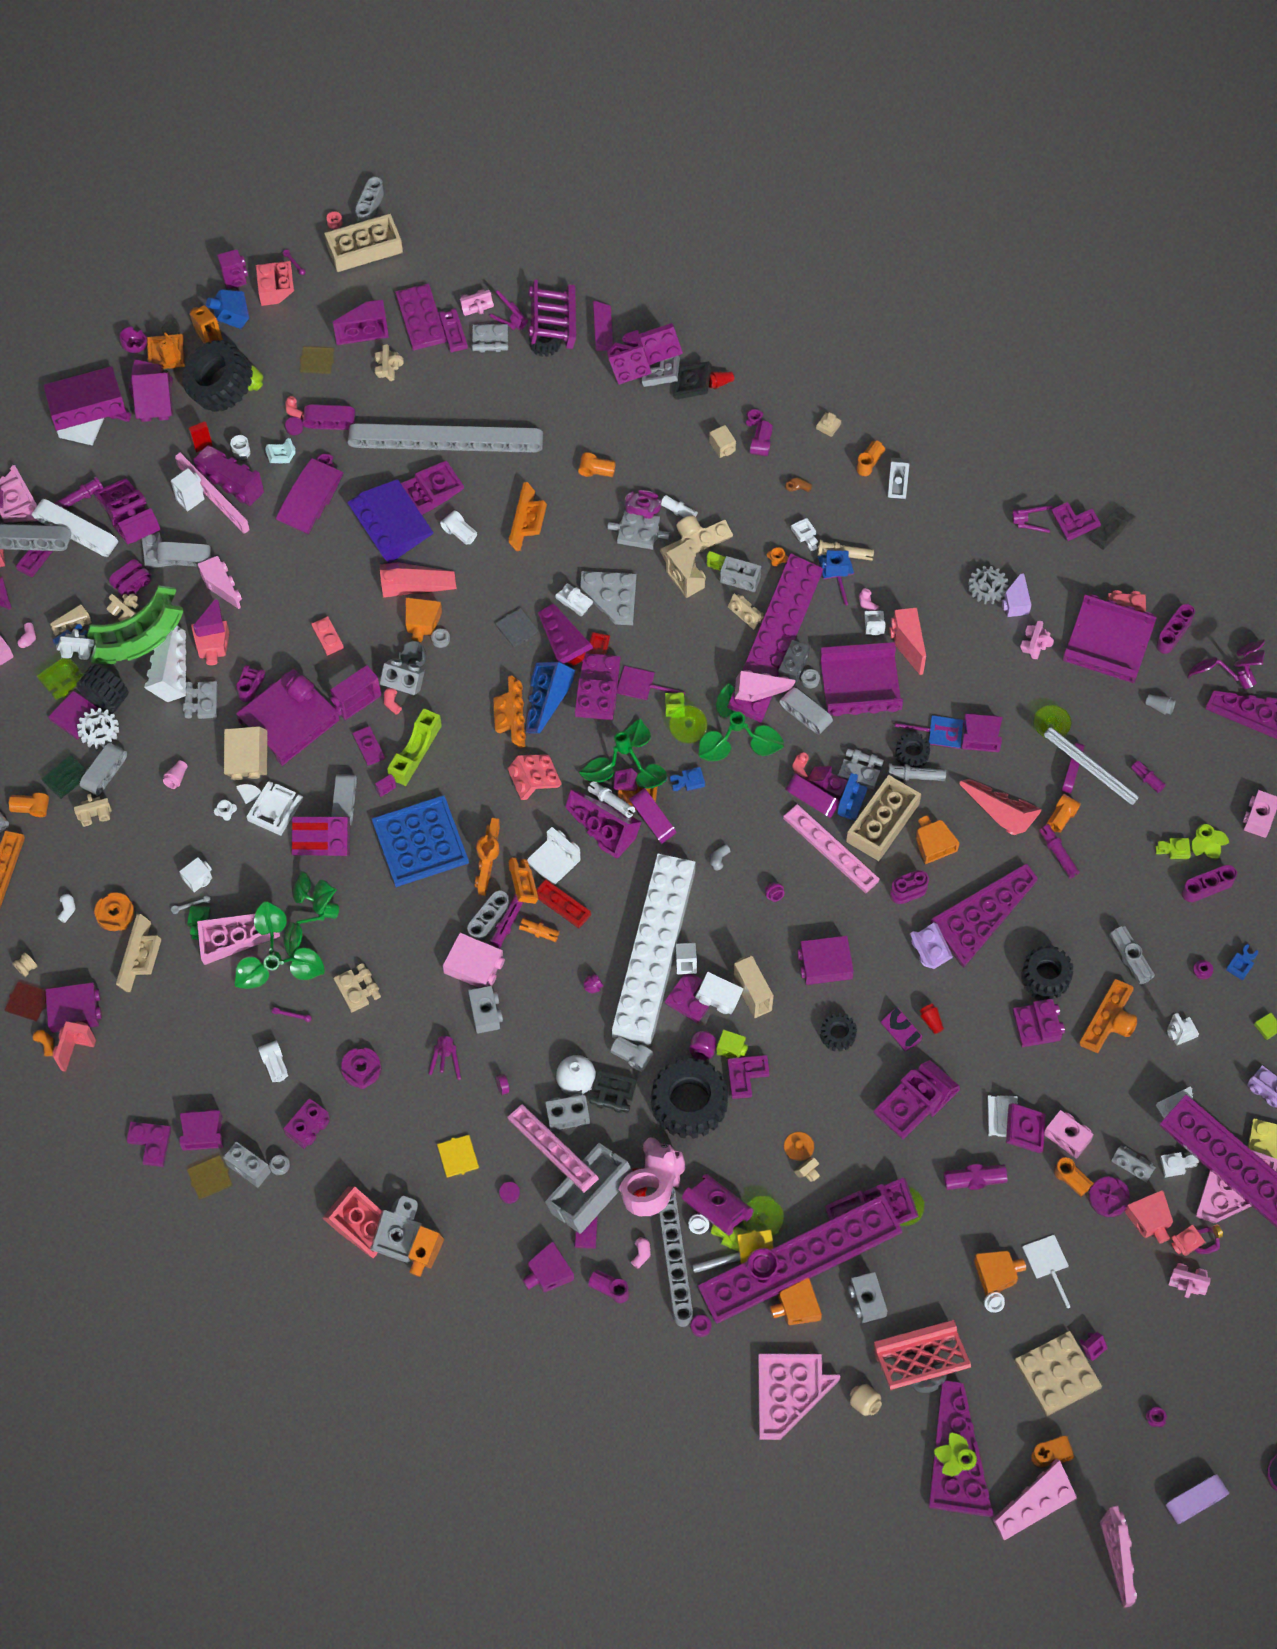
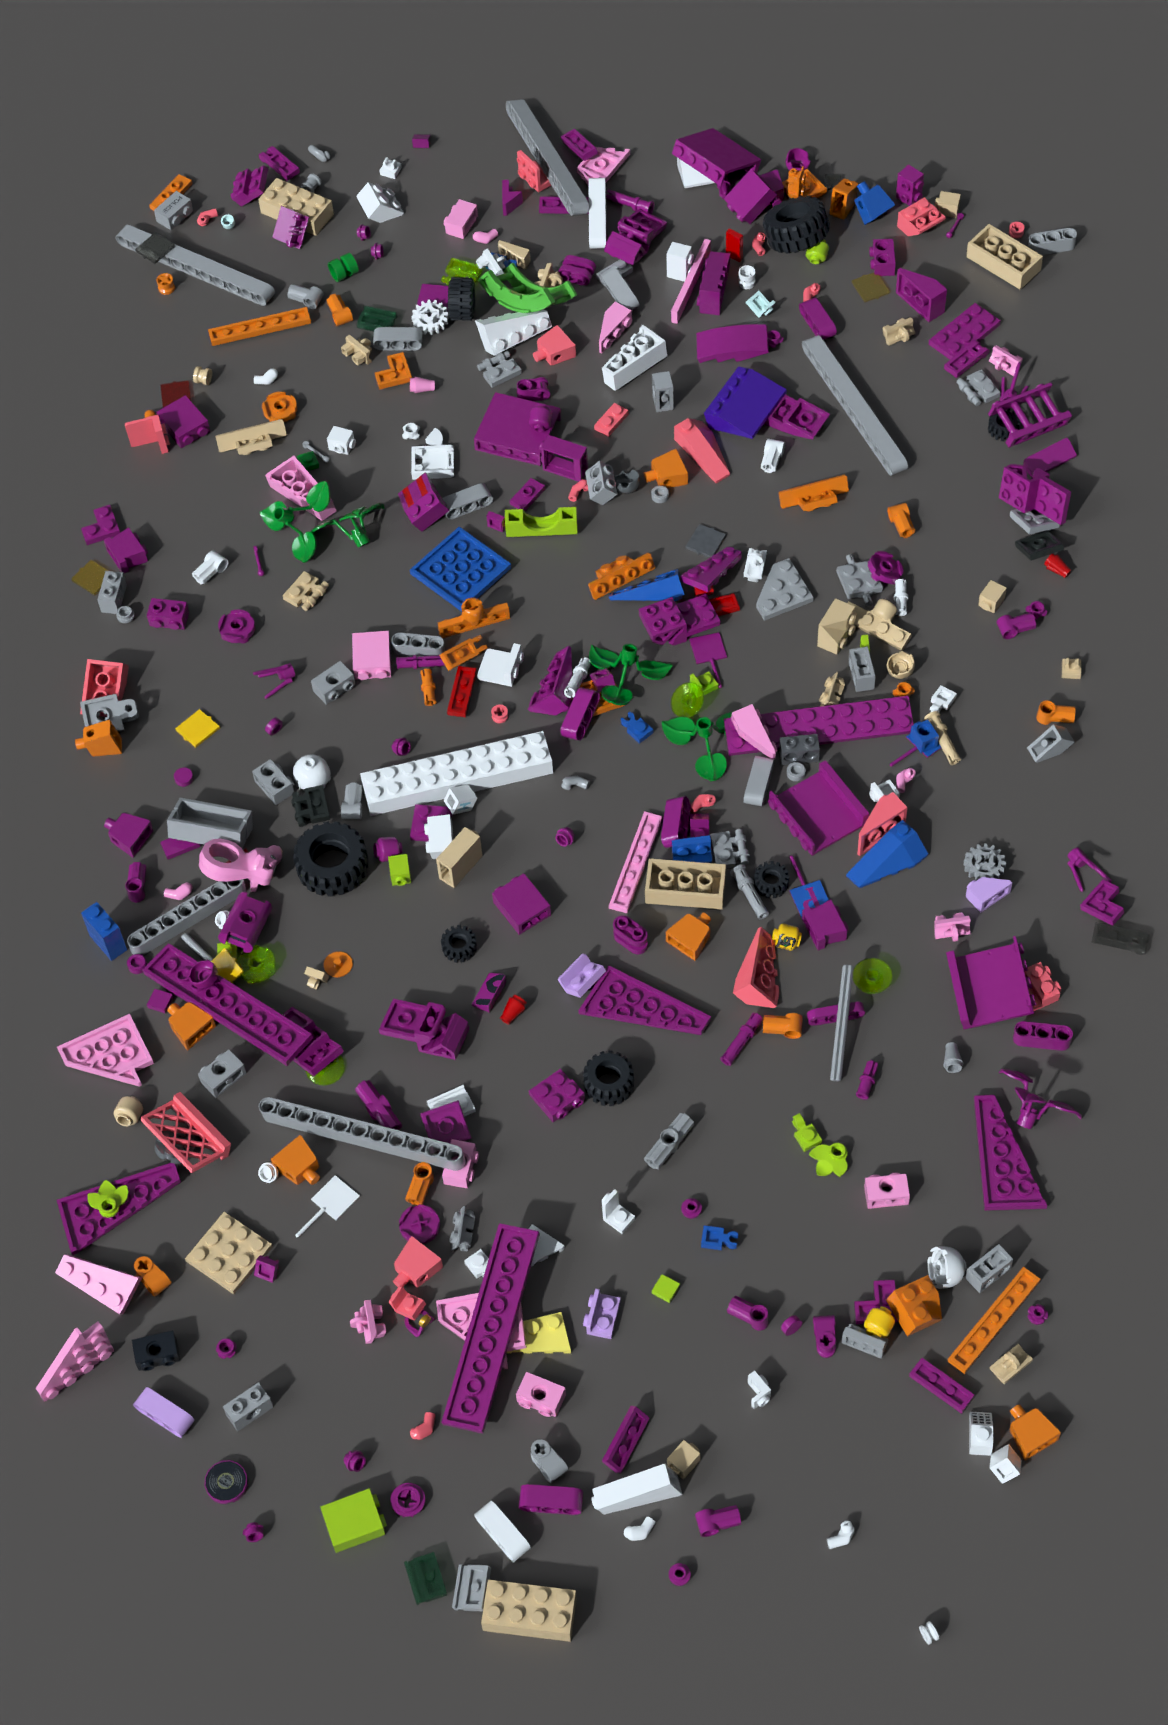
camera: 65 degrees right, 5 degrees down
(145, 787) = (396, 375): none -> orange plate
(201, 417) = (758, 242): none -> coral arm
(210, 621) = (565, 332): magenta slope -> none
(245, 752) = (463, 415): tan brick -> none
(270, 252) = (948, 204): none -> tan brick
(272, 574) = (634, 358): none -> white wedge
(294, 426) = (793, 302): magenta tile -> none
(295, 332) = (883, 257): none -> magenta brick
(332, 576) = (662, 391): none -> light grey brick
(533, 773) = (571, 616): coral bracket -> none
(553, 1148) = (231, 782): bright pink tile -> none
(605, 890) = (499, 708): none -> coral bush
(660, 1336) = (104, 931): none -> blue brick
(742, 1070) = (379, 888): magenta plate -> none
(752, 543) = (900, 665): none -> tan hair
(754, 1321) = (159, 1001): none -> magenta tile
(797, 483) = (989, 672): dark orange arm -> none
(941, 651) = (893, 852): none -> blue wedge
(978, 767) = (787, 937): none -> yellow head
(999, 1210) = (368, 1139): none -> light grey beam
(1110, 1018) = (595, 1150): orange plate -> none
(1126, 1491) = (145, 1346): none -> black brick
(1203, 889) = (779, 1167): magenta beam -> none
(1227, 1421) = (248, 1406): none -> light grey brick

